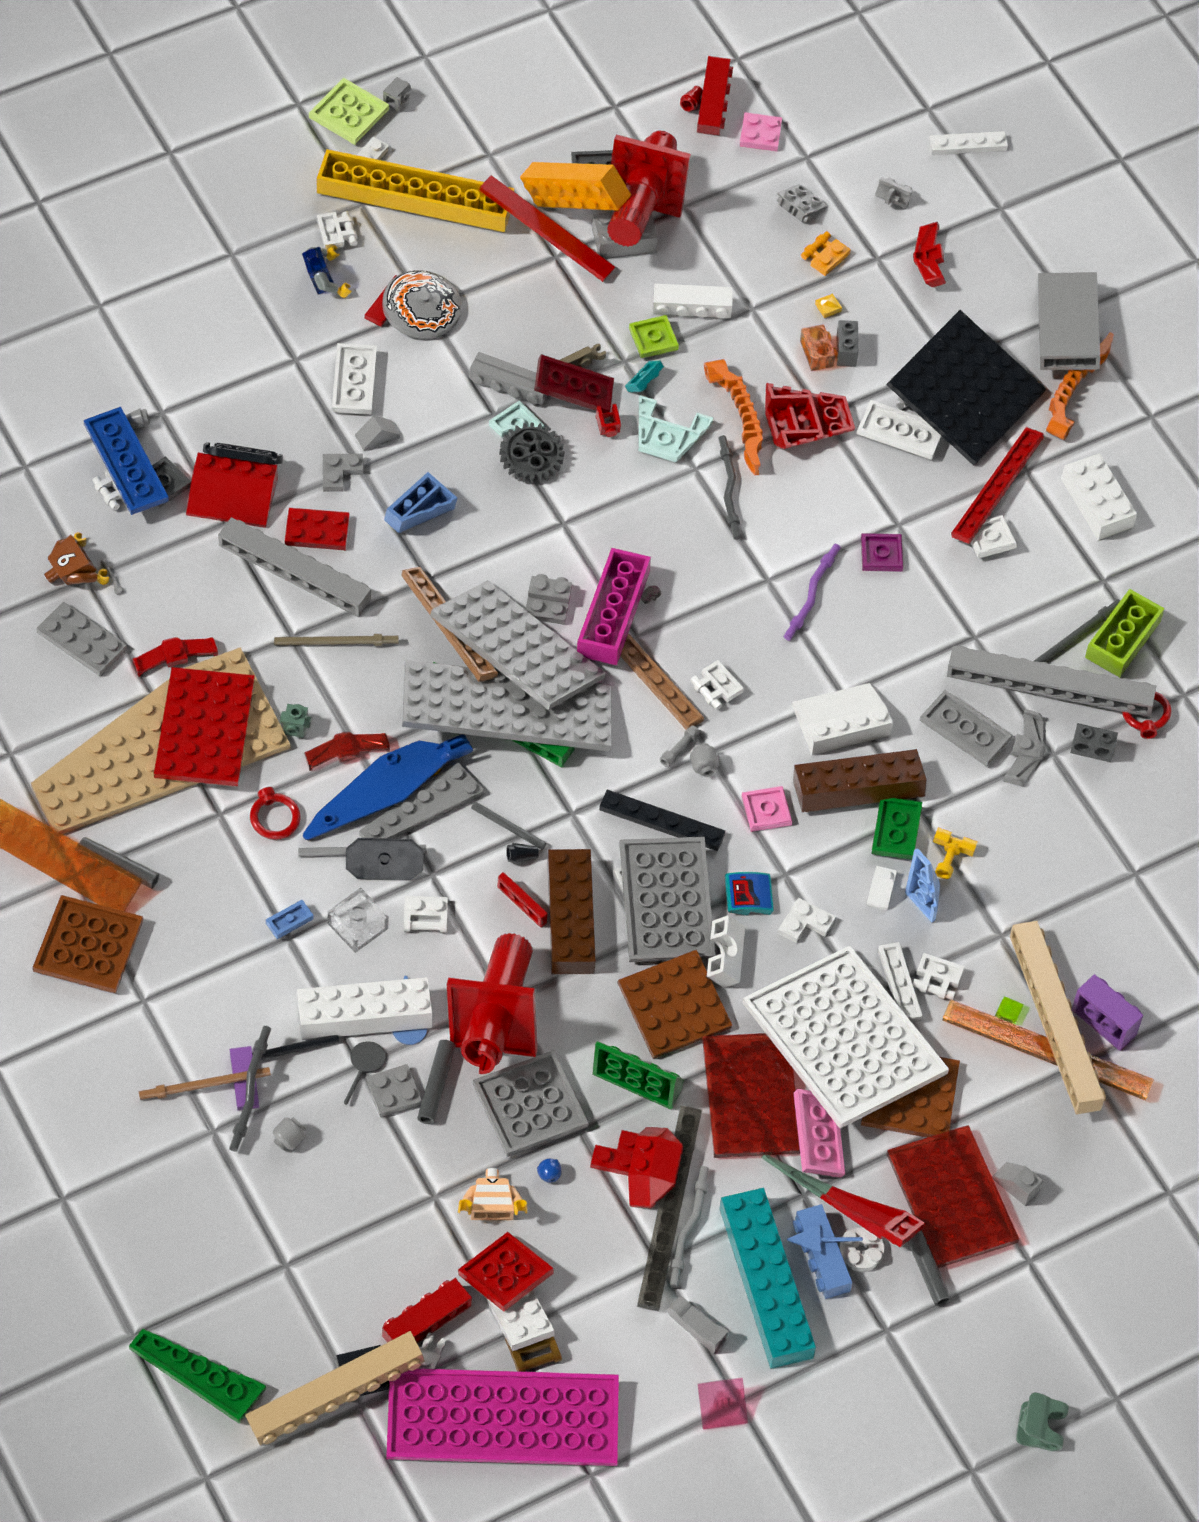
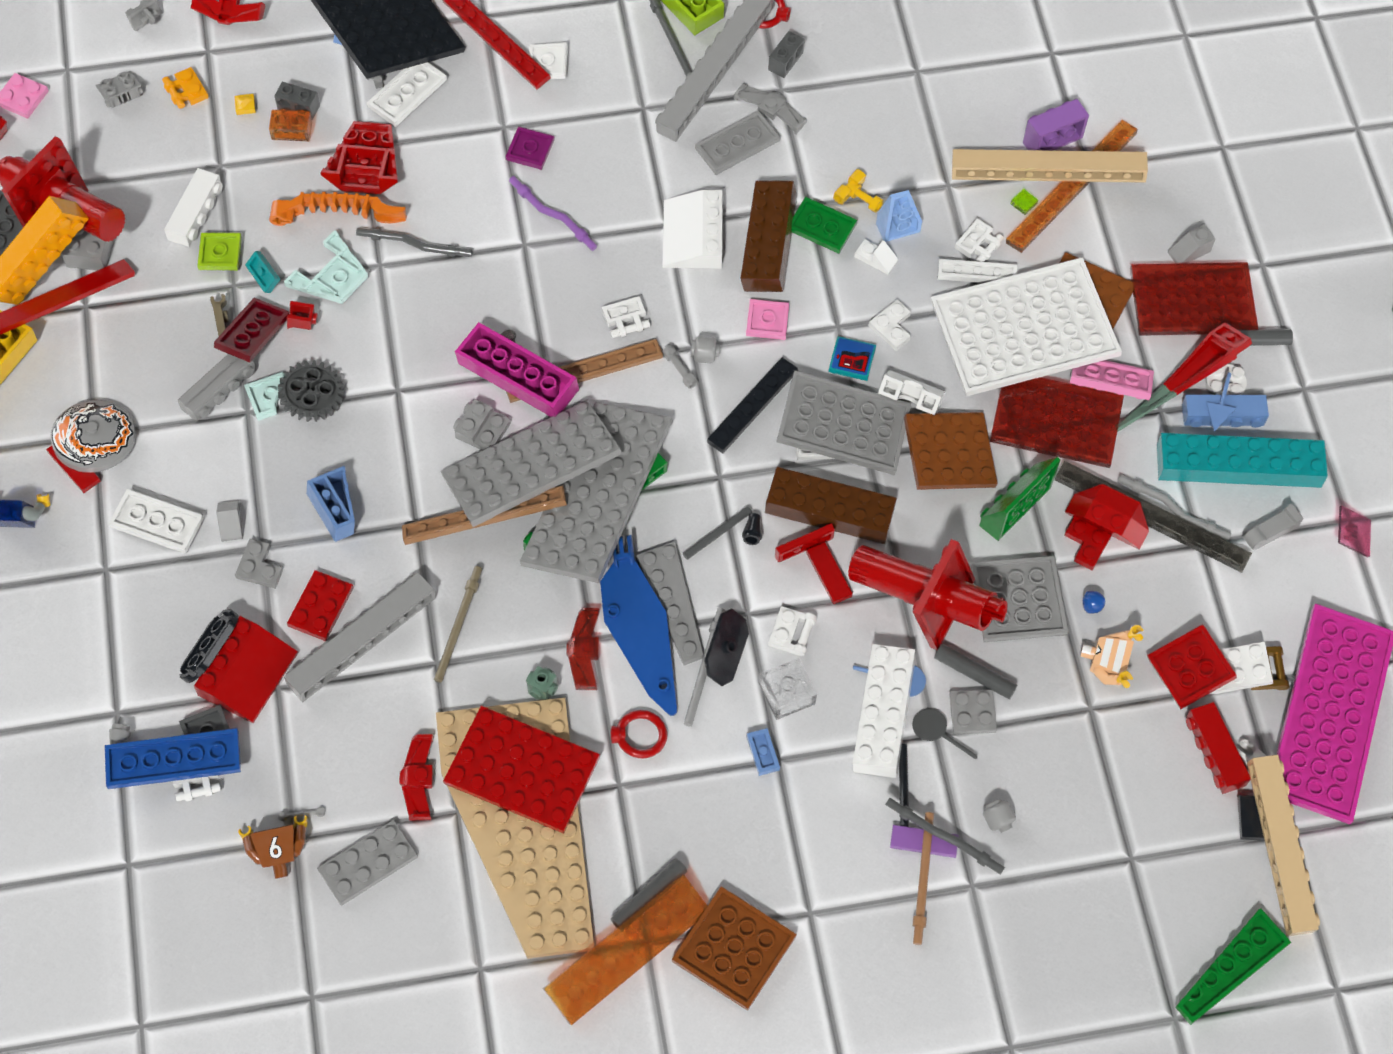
camera: 70 degrees left, 5 degrees up
(509, 922) = (829, 573): none -> red tile

